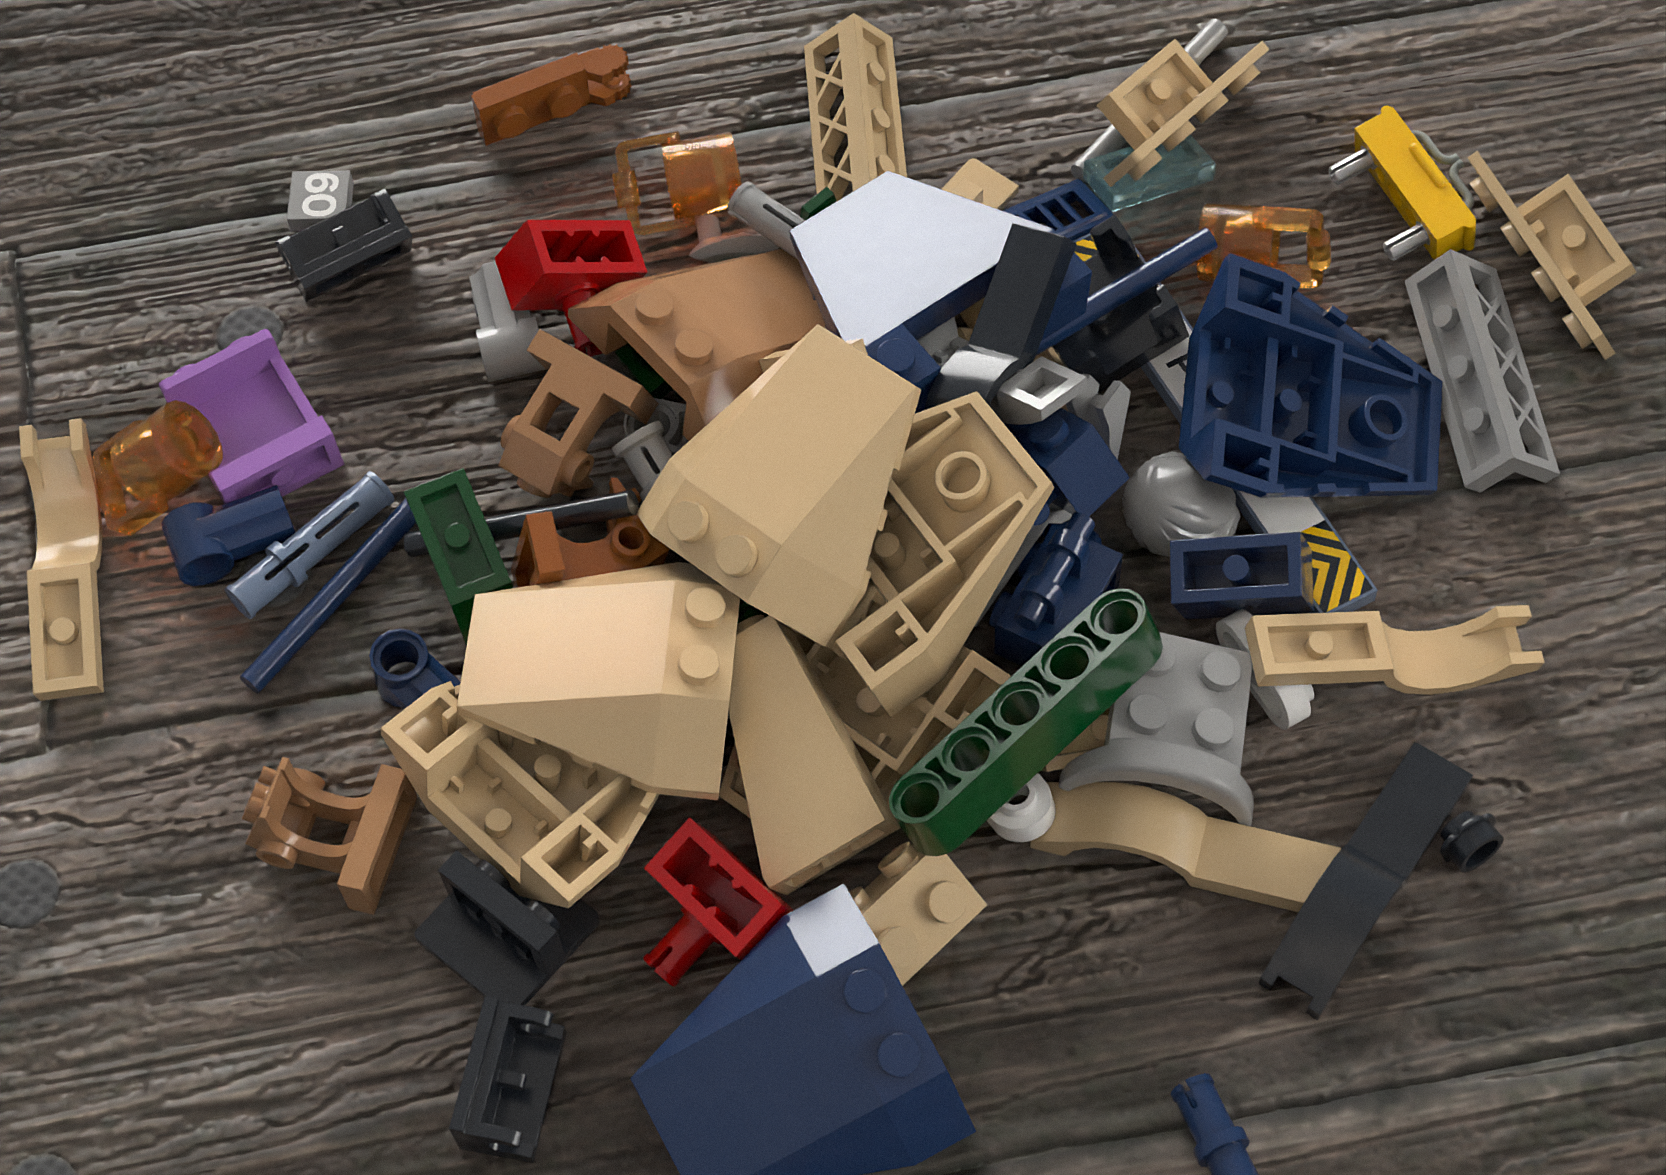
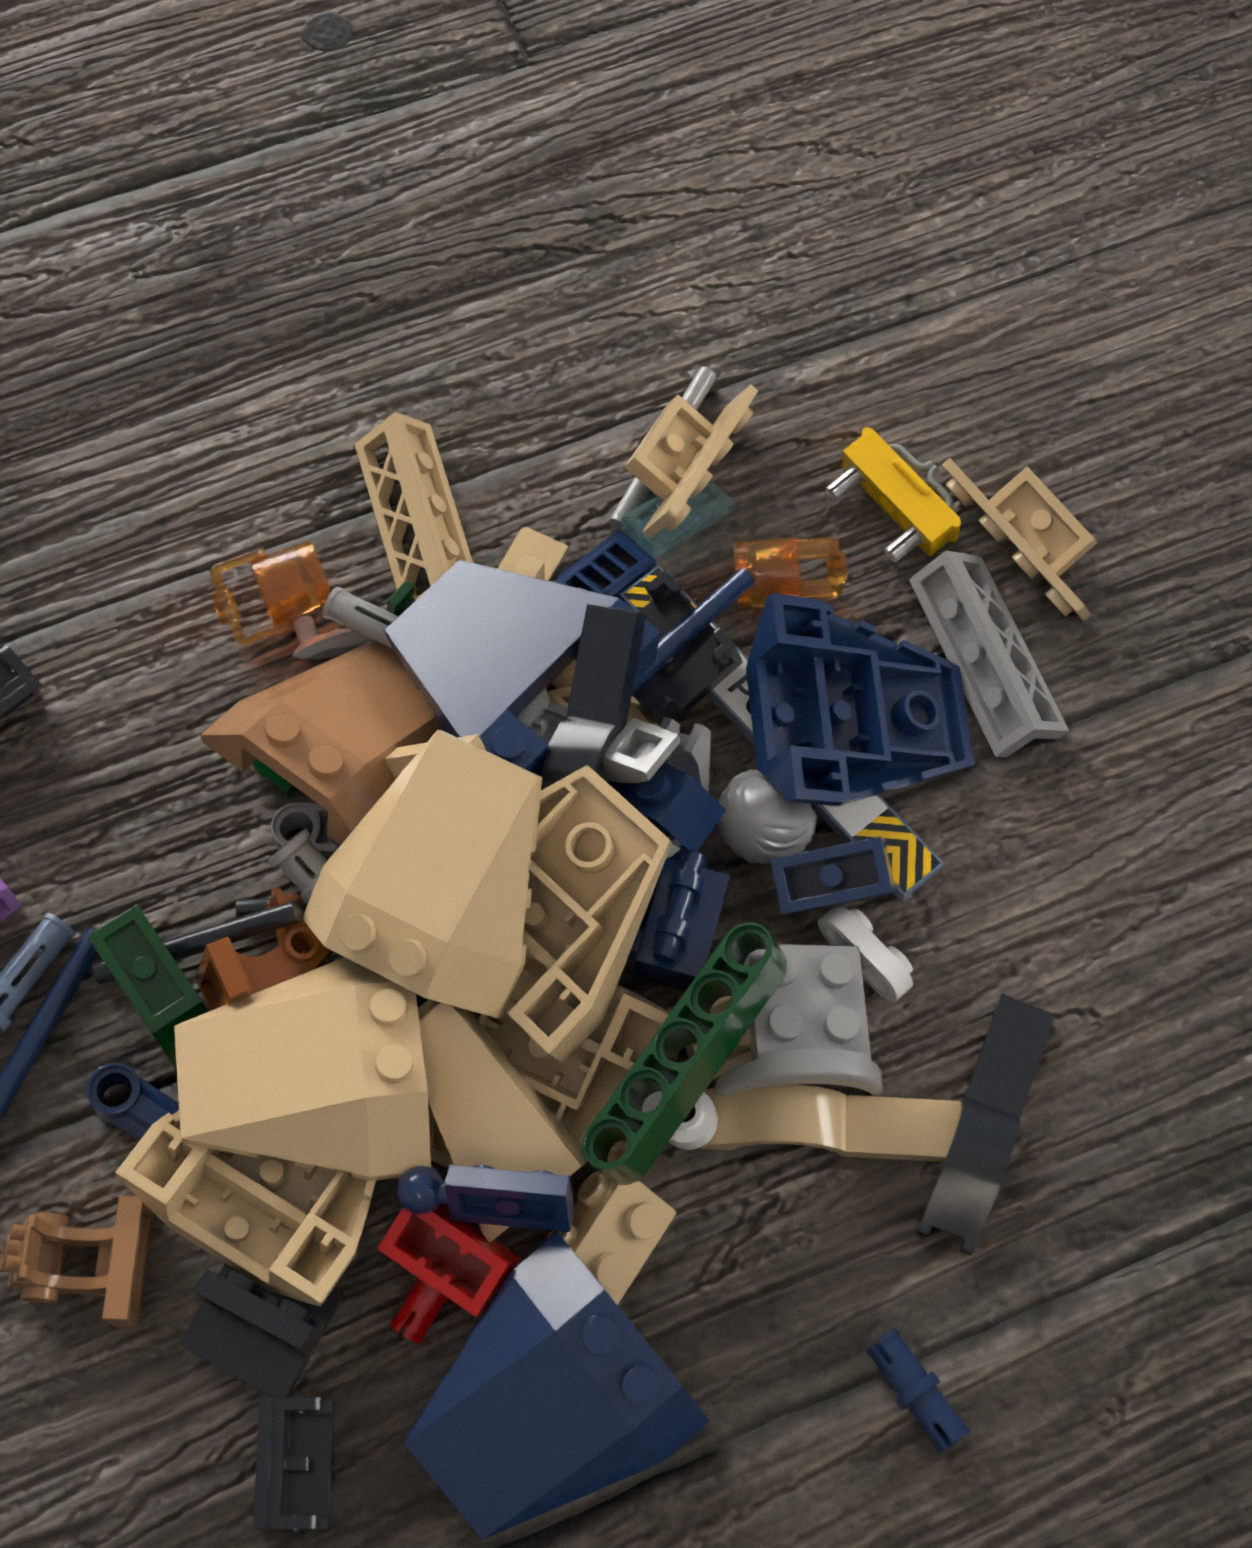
camera: 20 degrees left, 5 degrees up
(503, 332) = (146, 758): light grey piece -> none
(551, 92) = (138, 523): dark orange hinge -> none
(566, 263) = (192, 692): red brick -> none
(597, 391) = (231, 807): medium nougat tile -> none
(779, 831) = (490, 1196): none -> dark blue plate
(1365, 649) = (957, 922): tan piece -> none
(1470, 840) = (1064, 1072): black plate -> none

